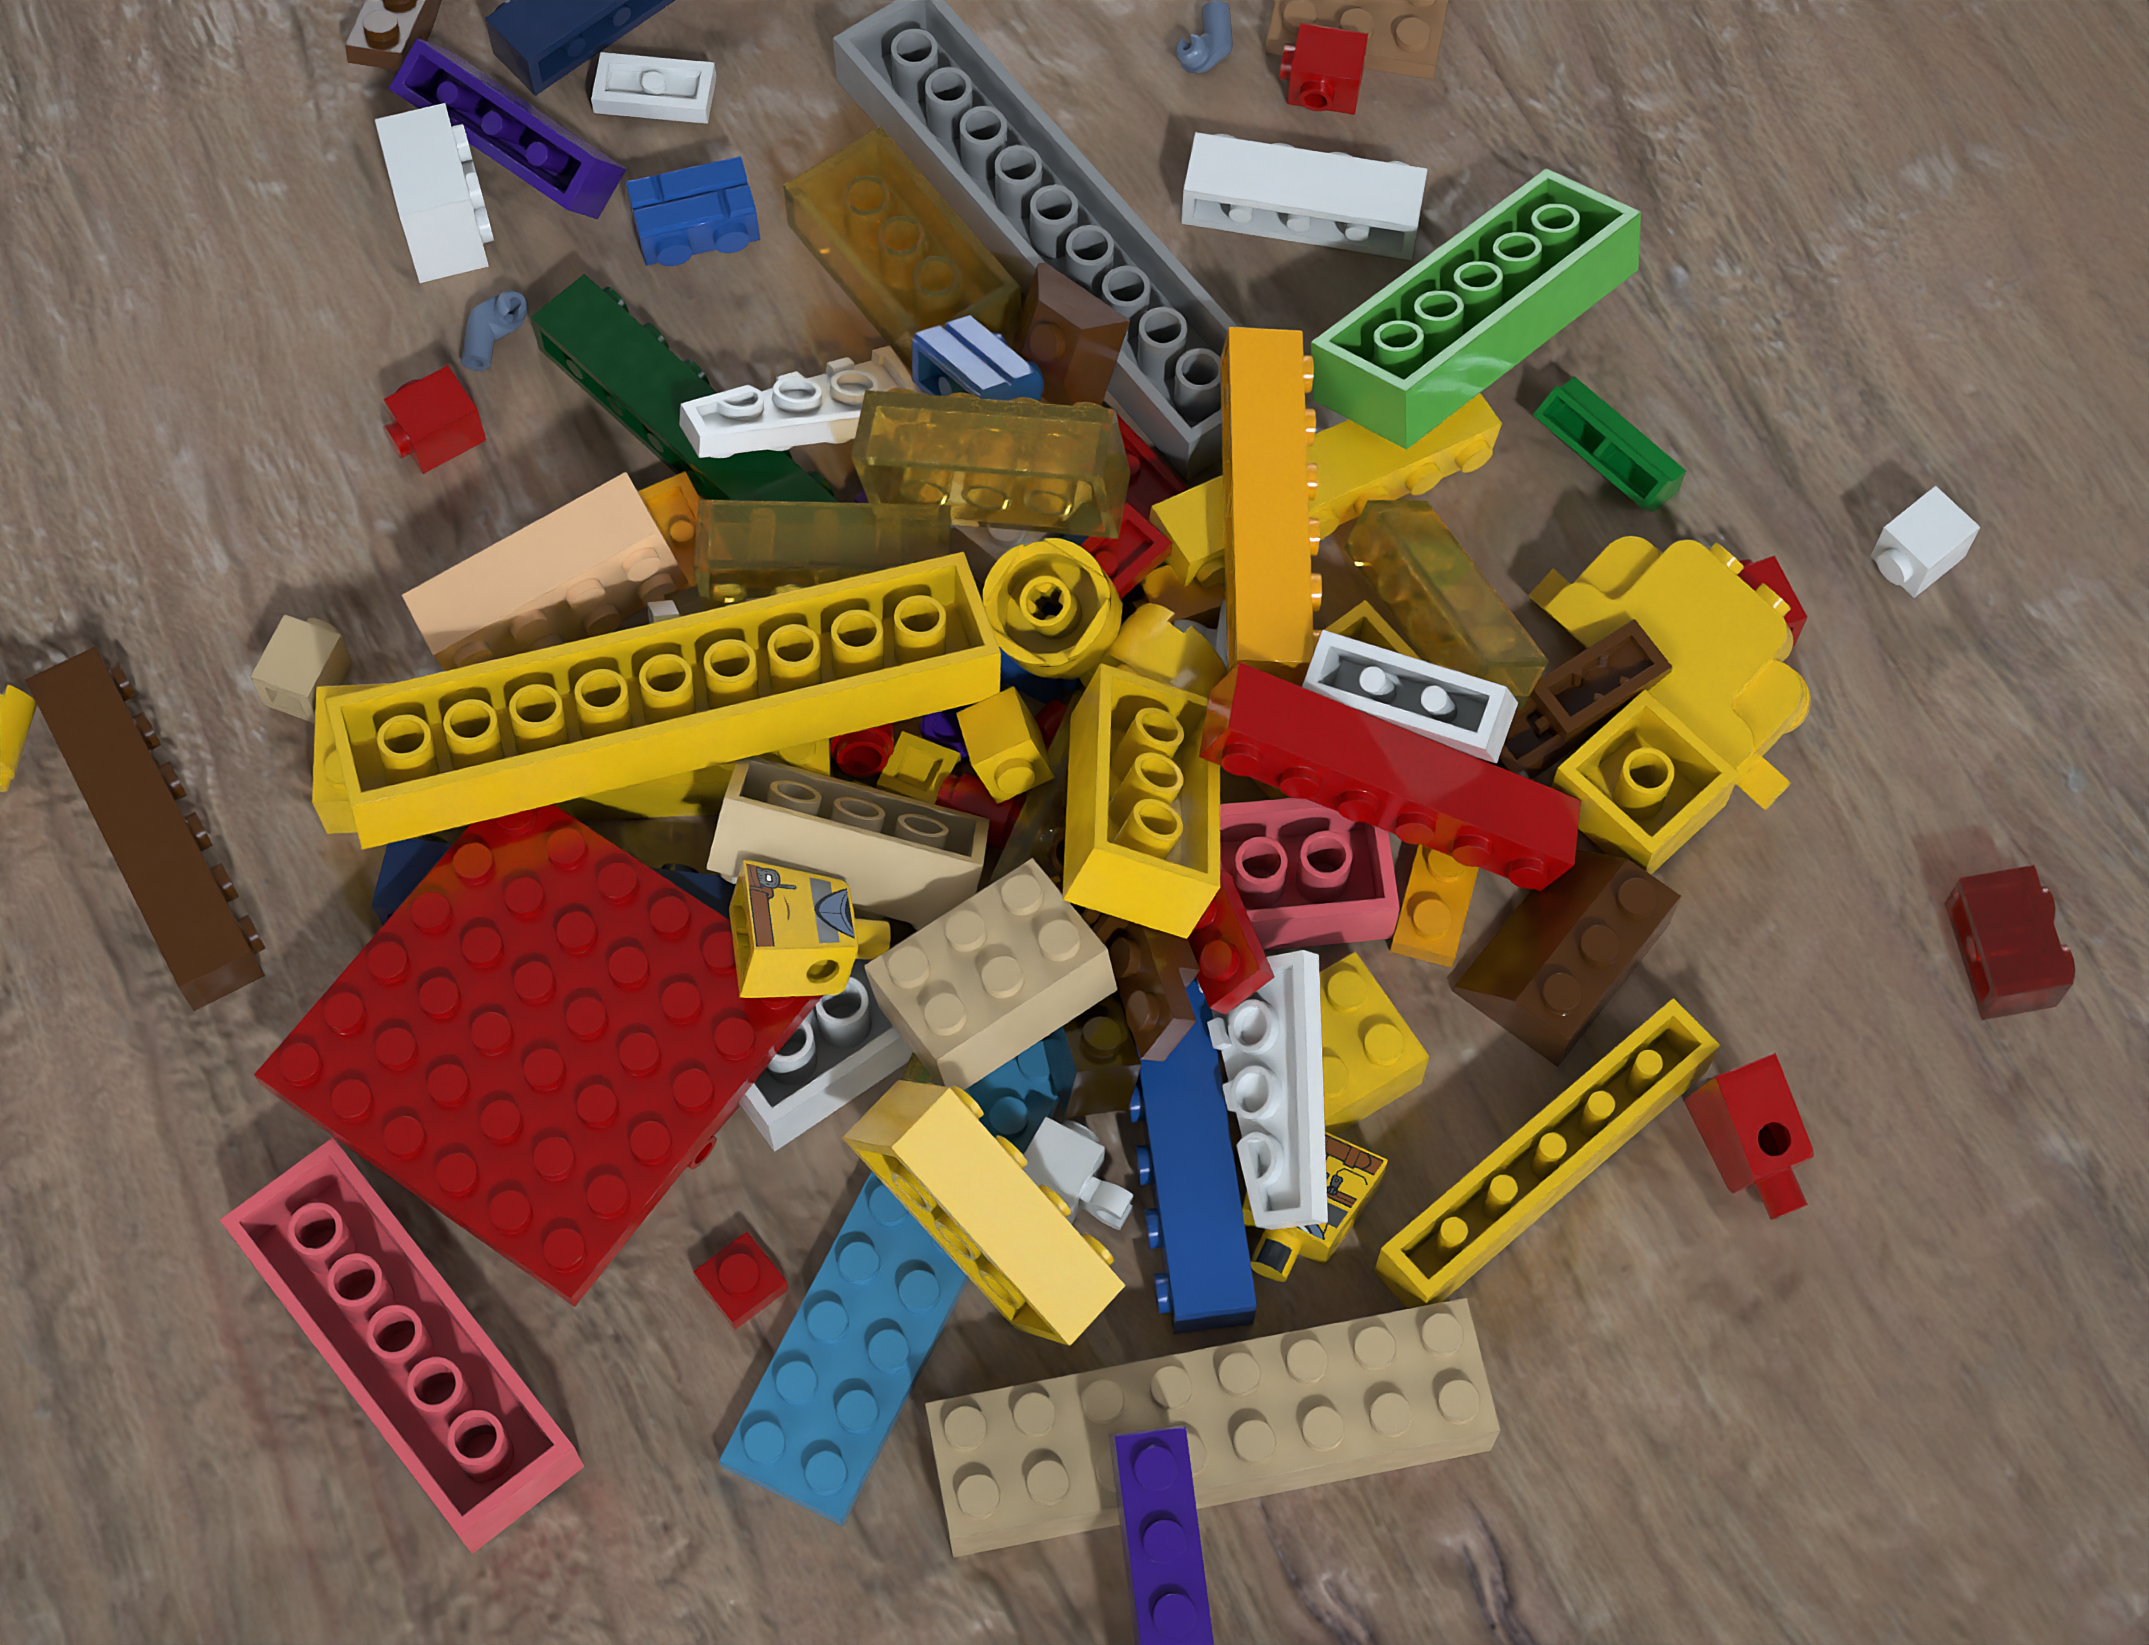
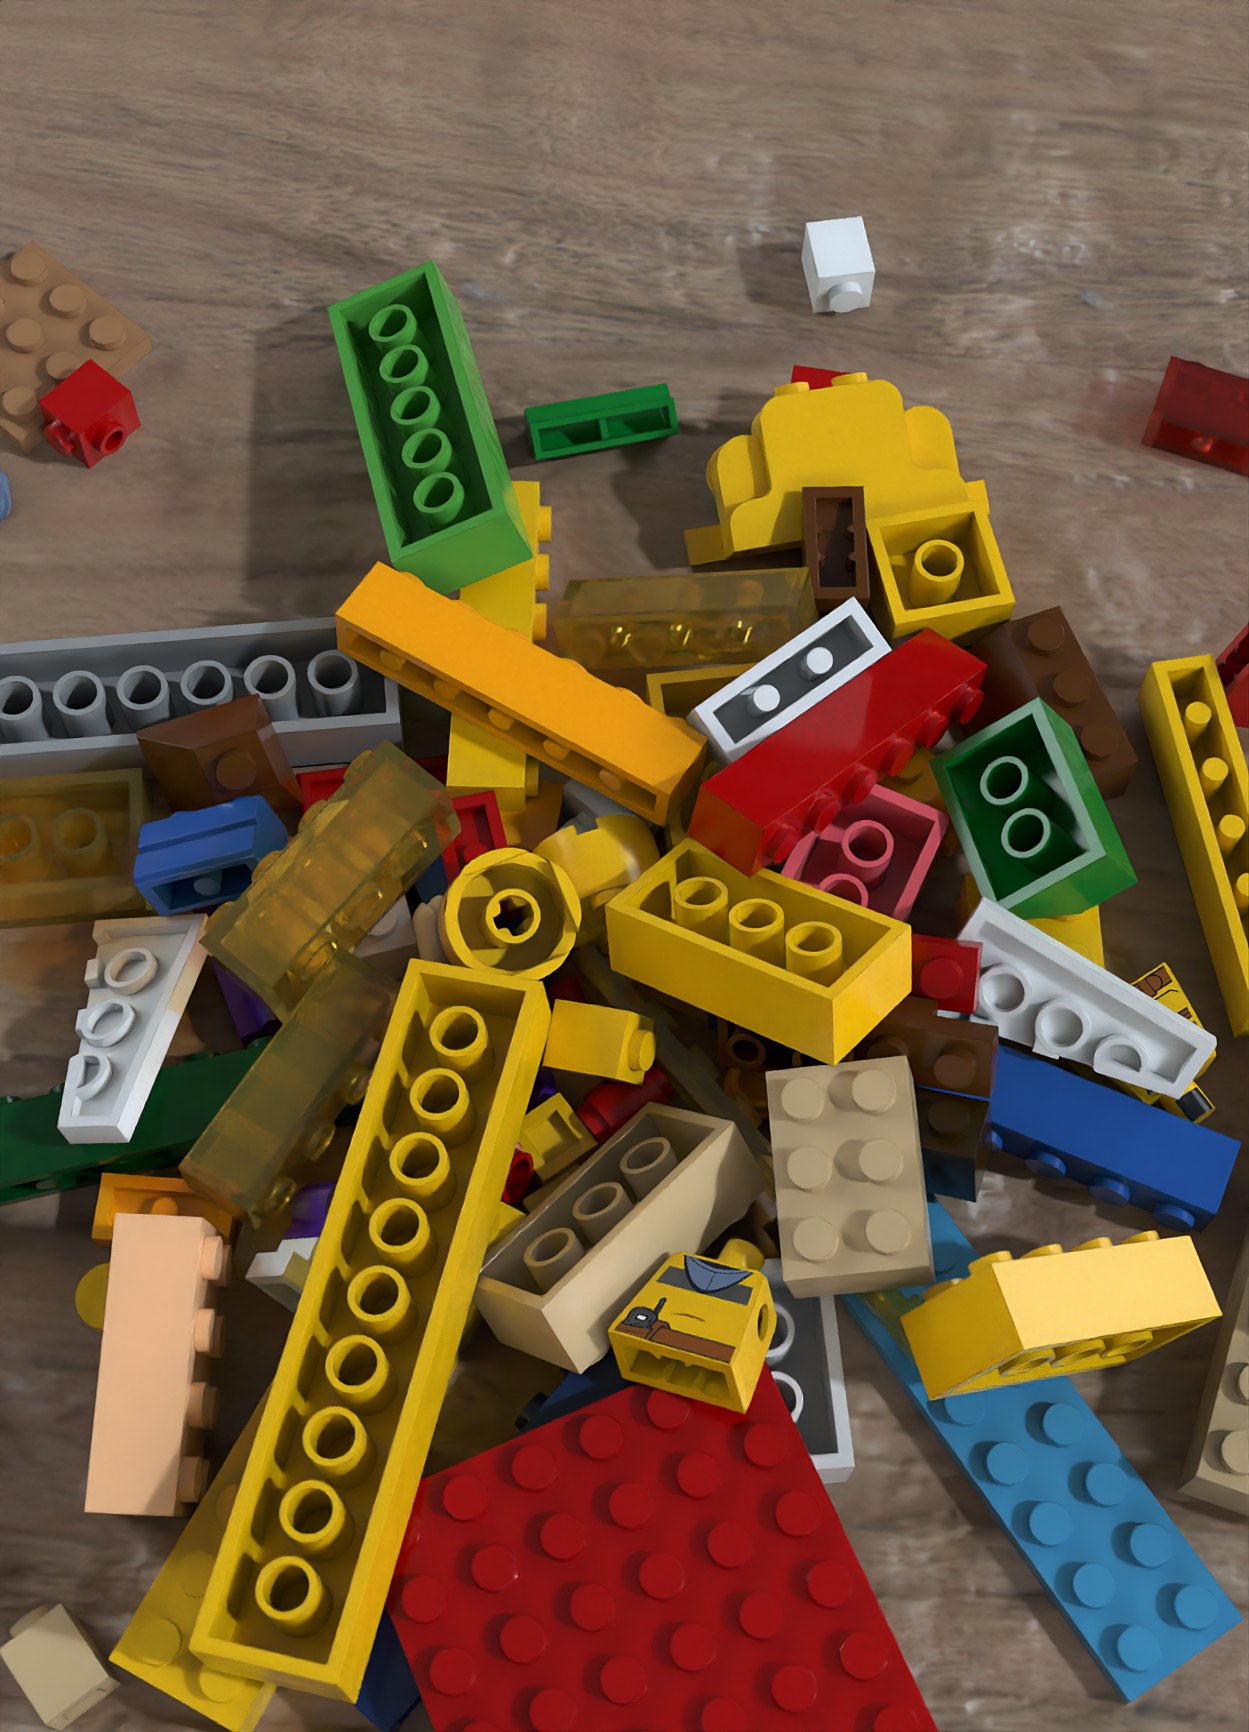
camera: 60 degrees left, 0 degrees up
(741, 1280) = (957, 1583): red plate -> none
(1070, 1164) = (1021, 1224): white brick -> none
(1303, 195) = (199, 504): white brick -> none
(1437, 968) = (1032, 816): none -> green slope

